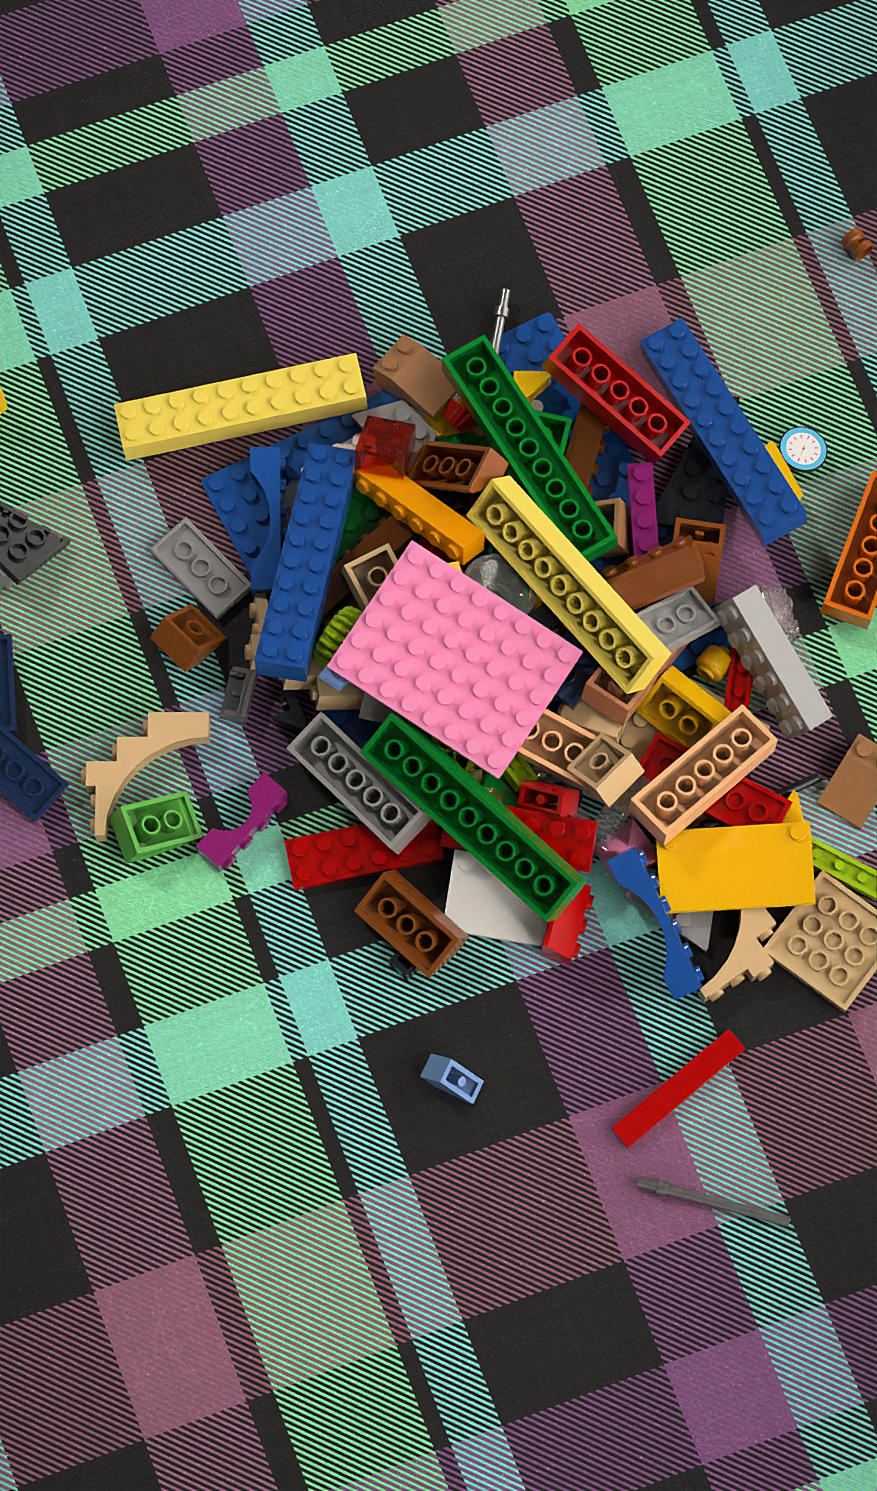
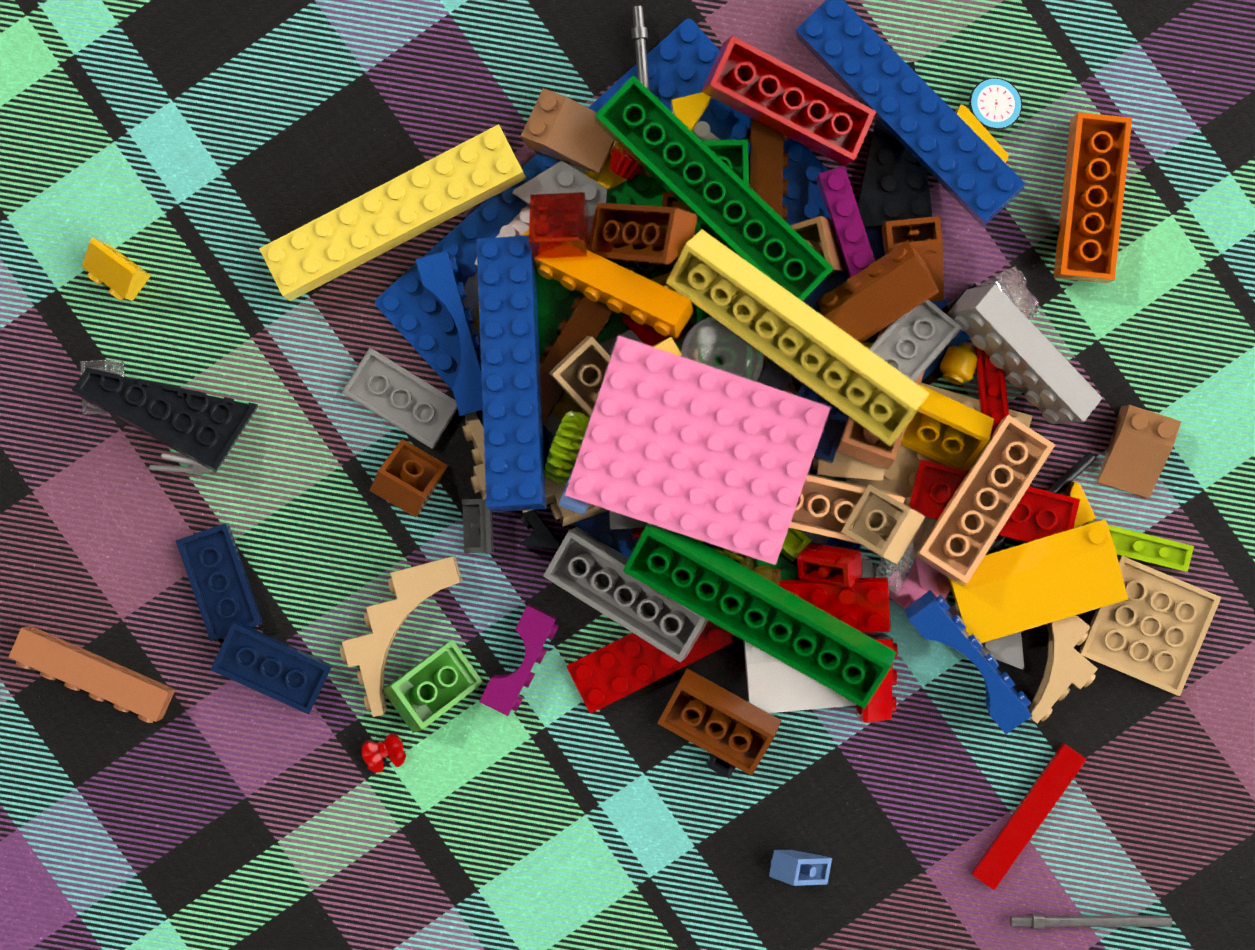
camera: 15 degrees left, 15 degrees up
(84, 873) = (375, 752): none -> red piece

